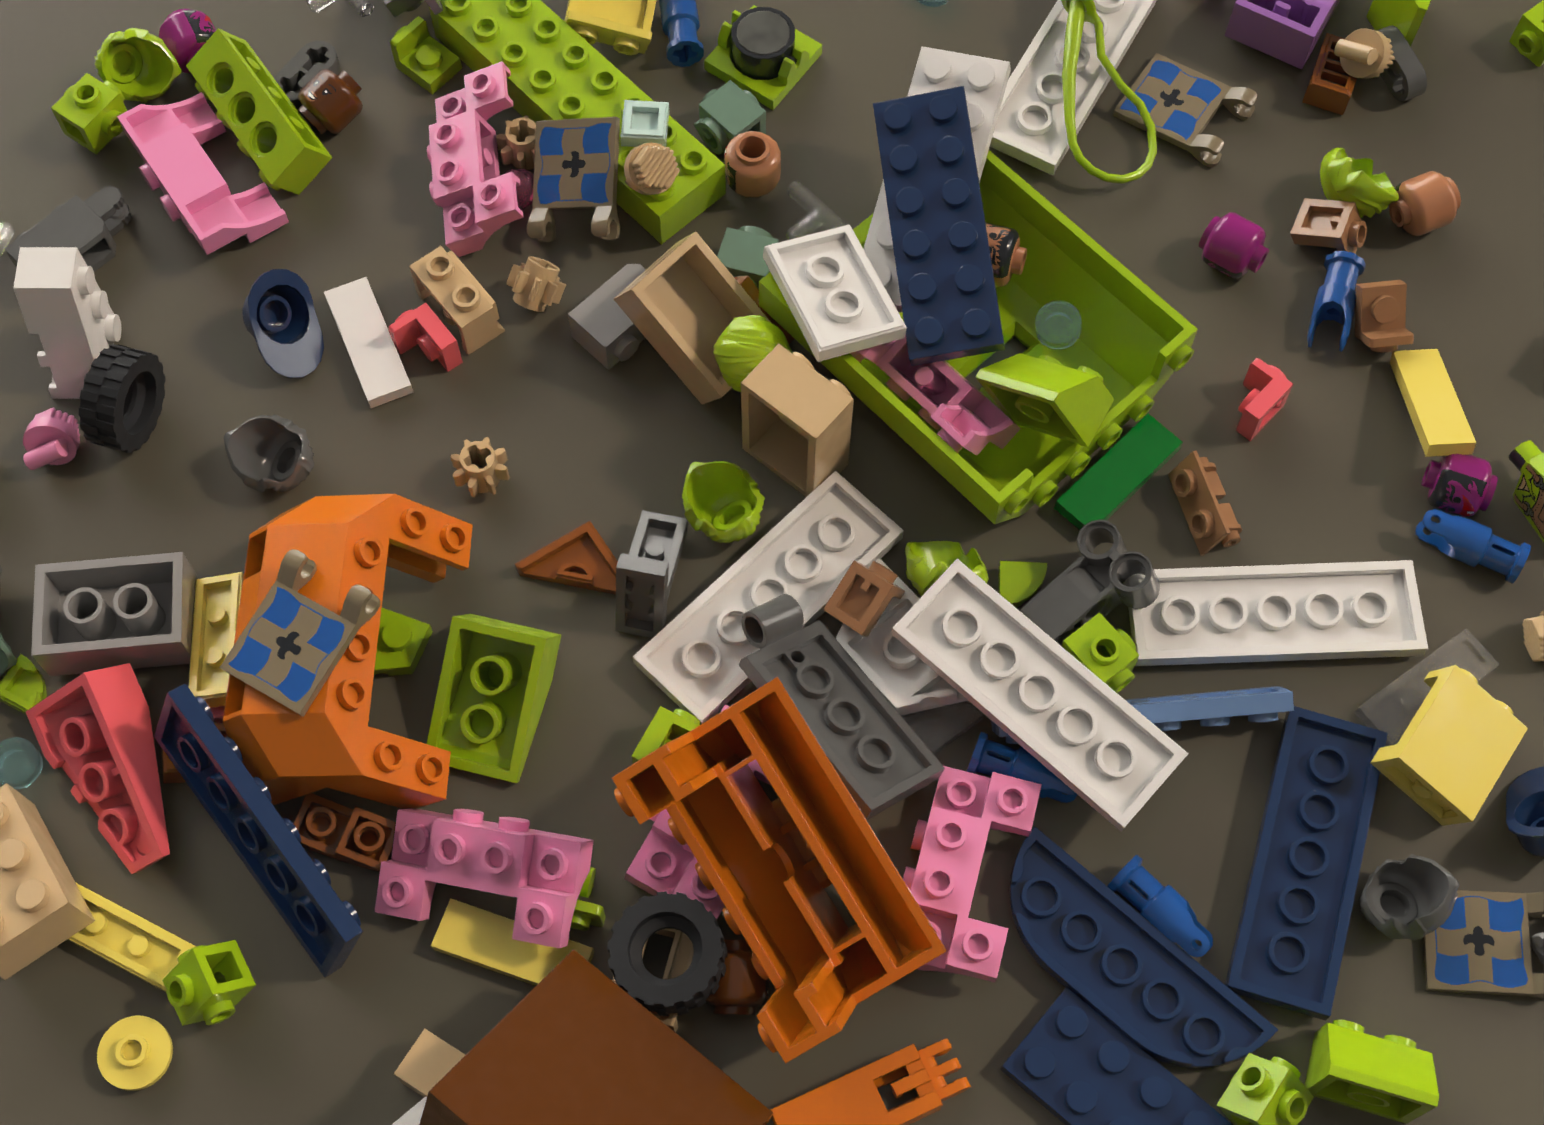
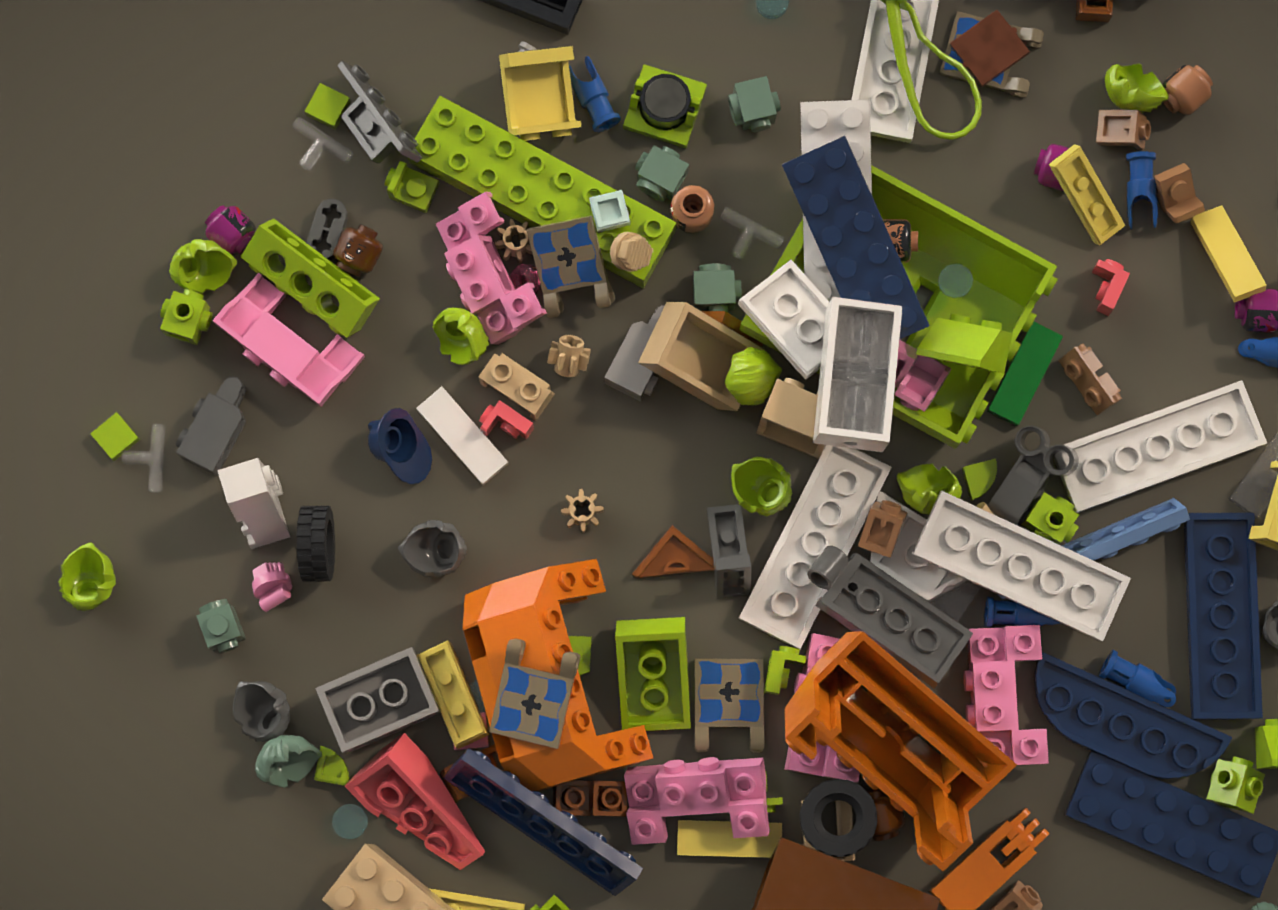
camera: 20 degrees left, 15 degrees up
(411, 221) = (460, 335): none -> lime hair
(577, 761) = (729, 696): none -> dark tan flag
(870, 76) = (754, 104): none -> sand green brick
(882, 357) = (857, 374): none -> clear brick
(1184, 96) = (989, 48): none -> copper piece
(1261, 279) = (1087, 194): none -> light yellow tile

